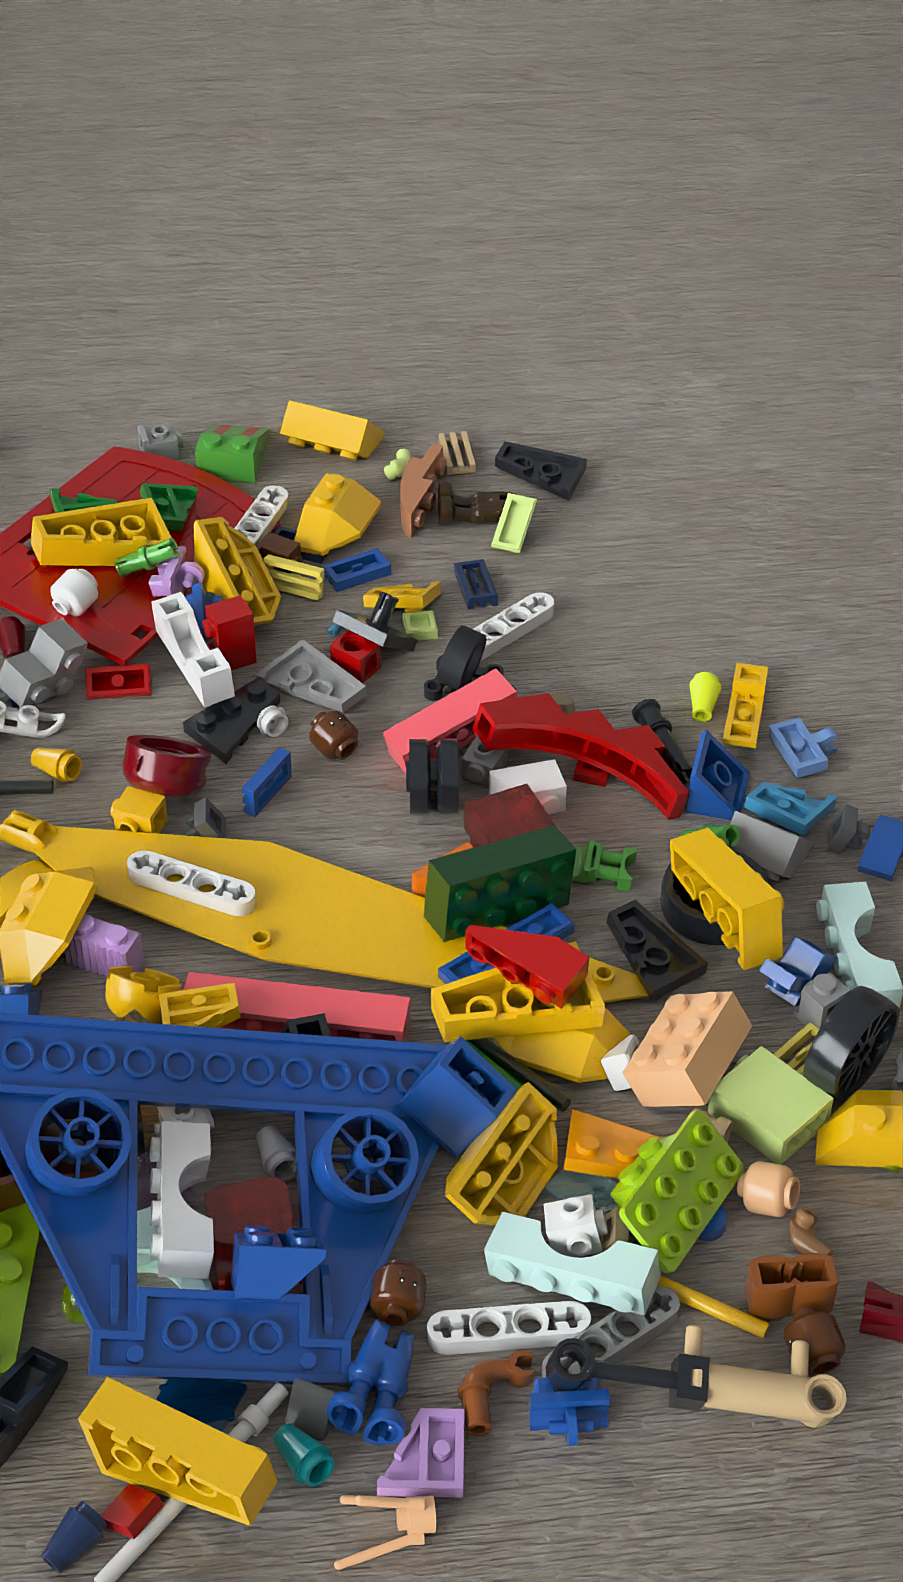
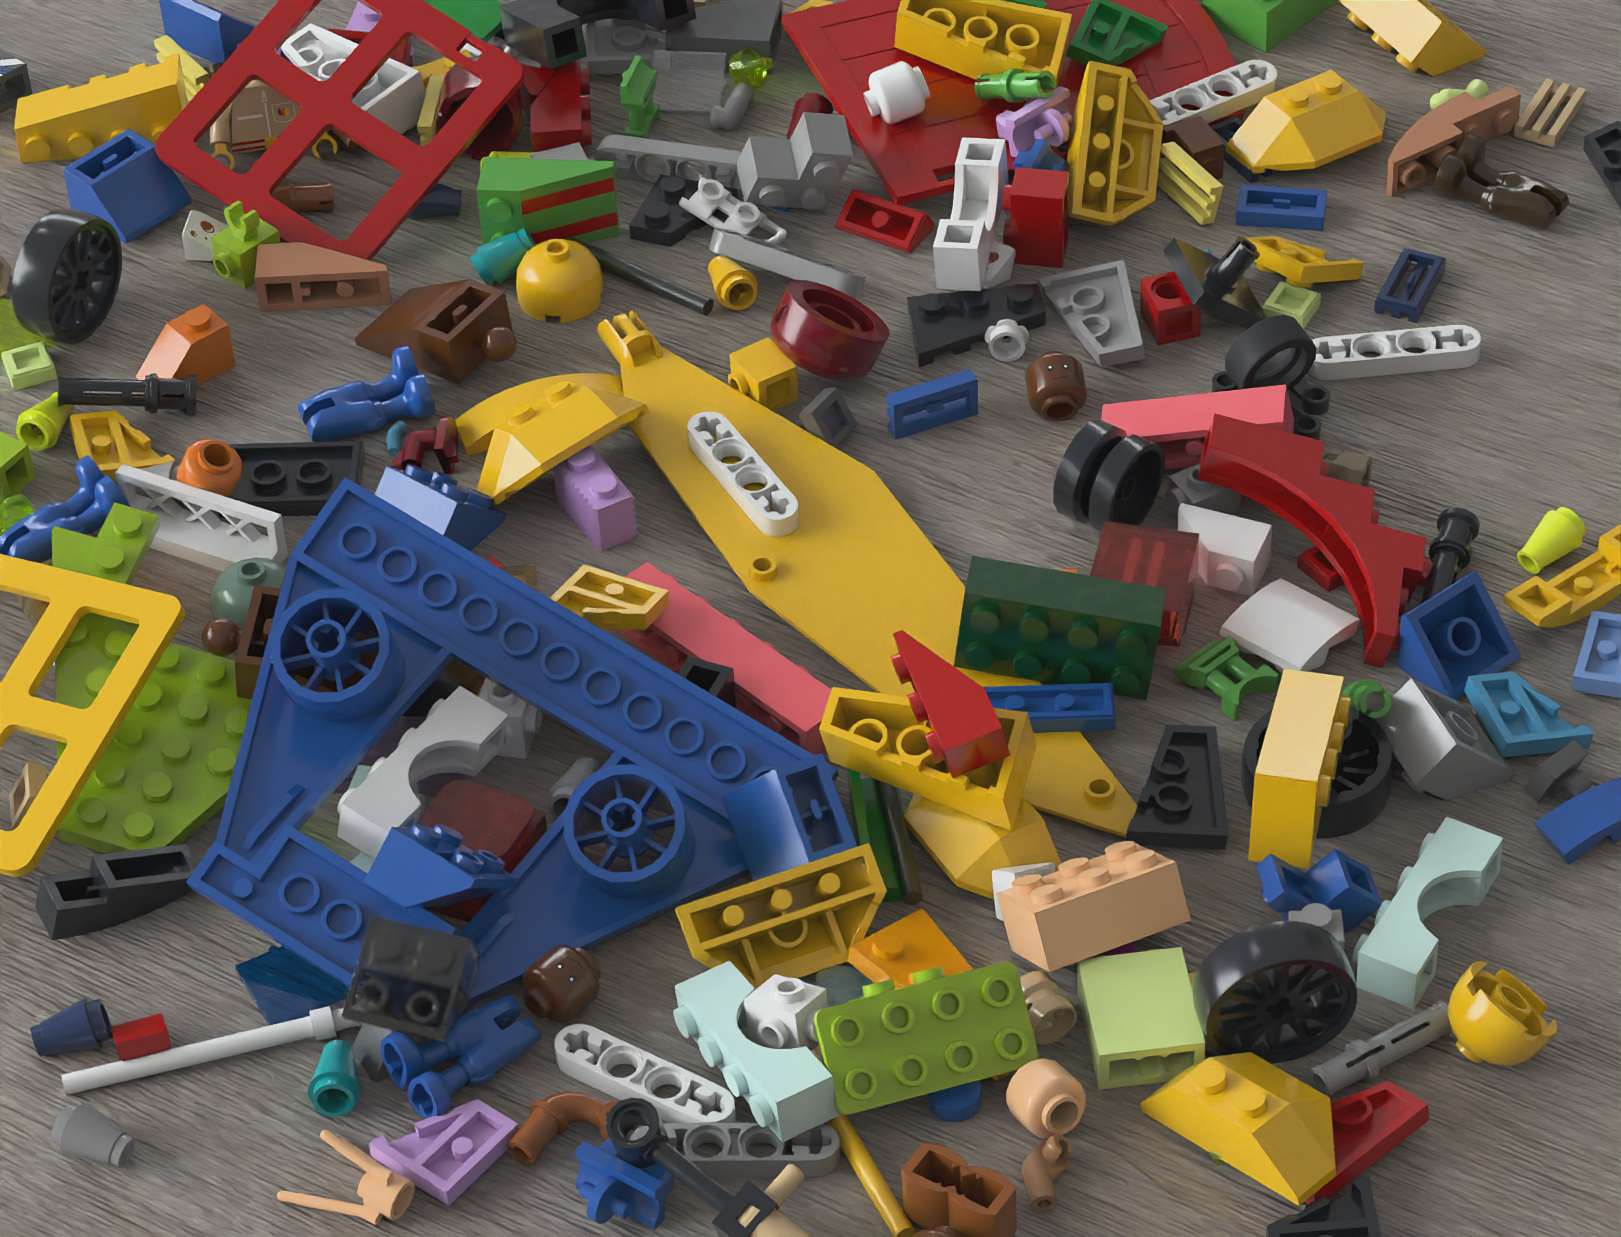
camera: 40 degrees right, 0 degrees up
(81, 733) = (785, 261): none -> light grey beam
(138, 991) = (575, 542): yellow cylinder -> none
(175, 1454) = (206, 999): yellow wedge -> none
(317, 1350) = (411, 979): none -> clear smoke slope
(514, 523) = (1522, 228): yellowish green tile -> none
(614, 818) = (1289, 626): none -> white slope

